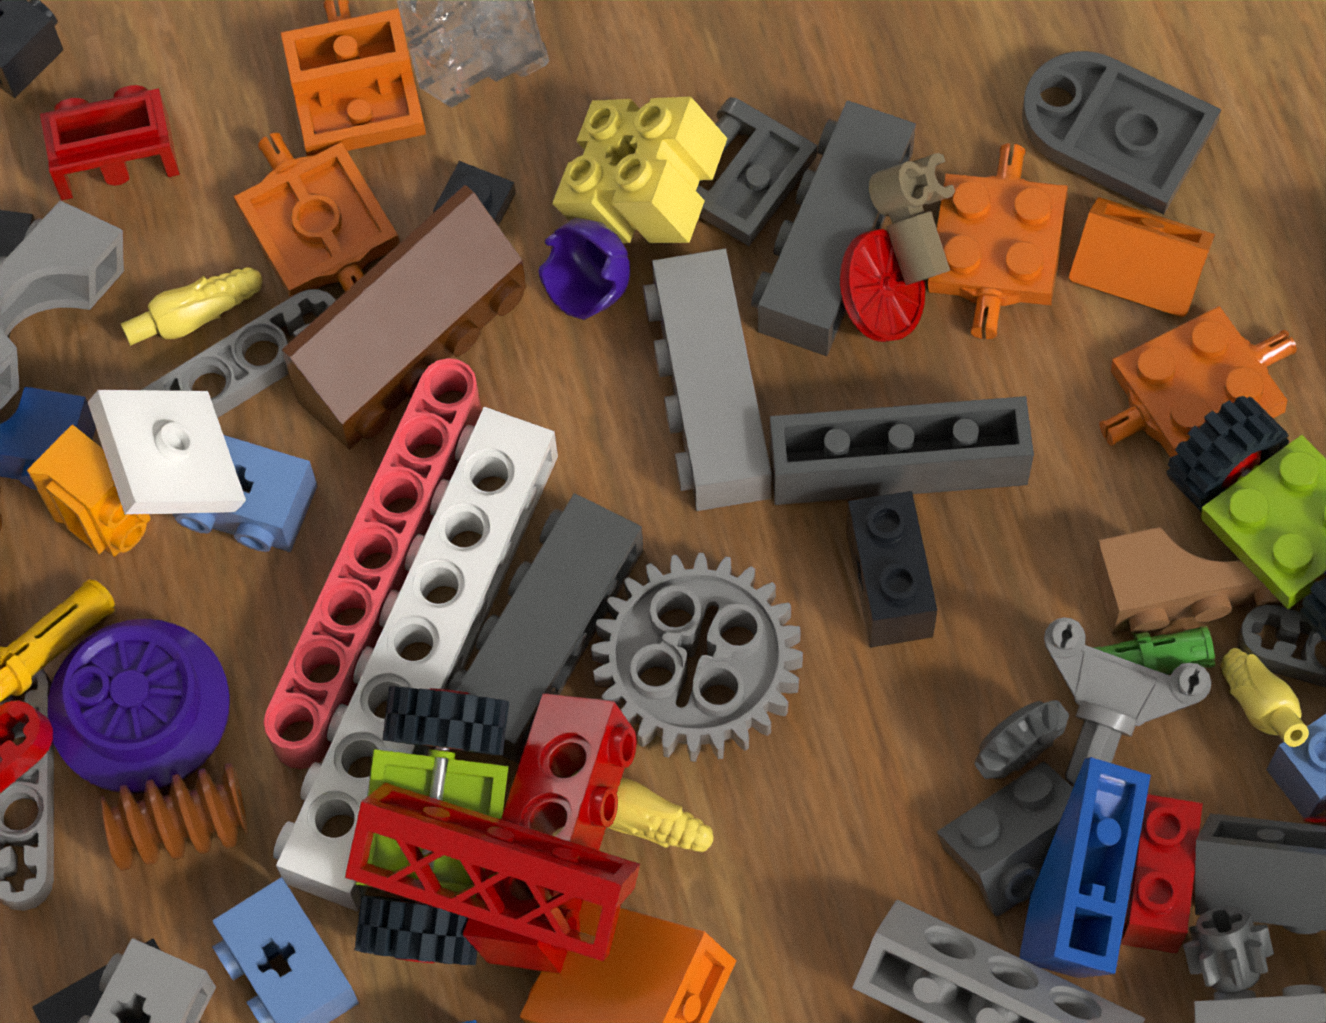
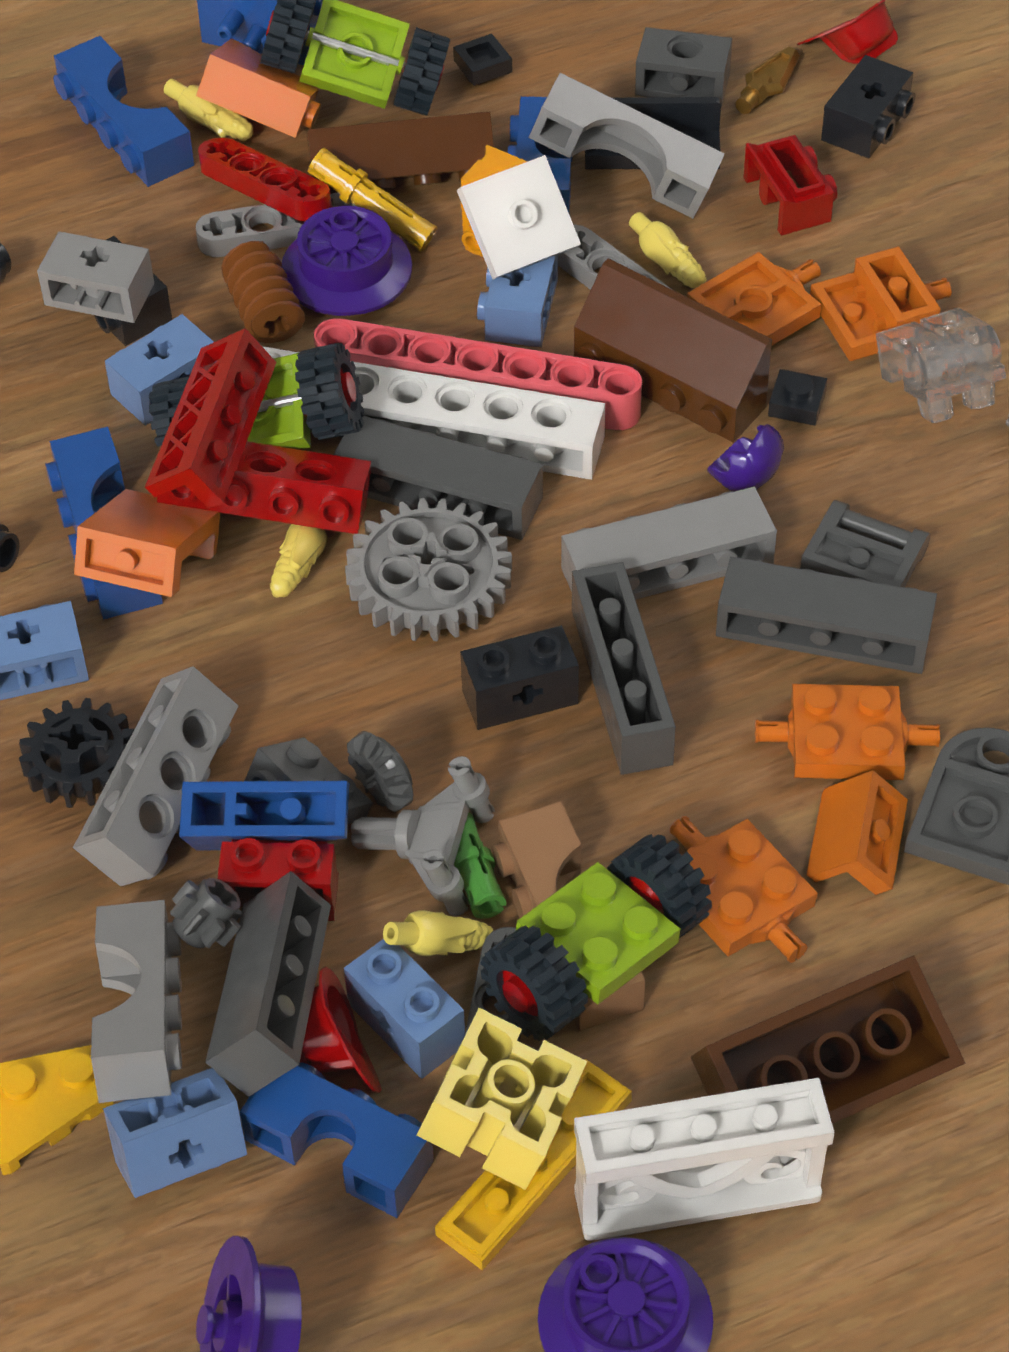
camera: 80 degrees right, 15 degrees down
(642, 168) = (833, 467): light yellow brick -> none
(876, 290) = (773, 643): red wheel -> none
(913, 233) = (848, 627): dark tan bar -> none

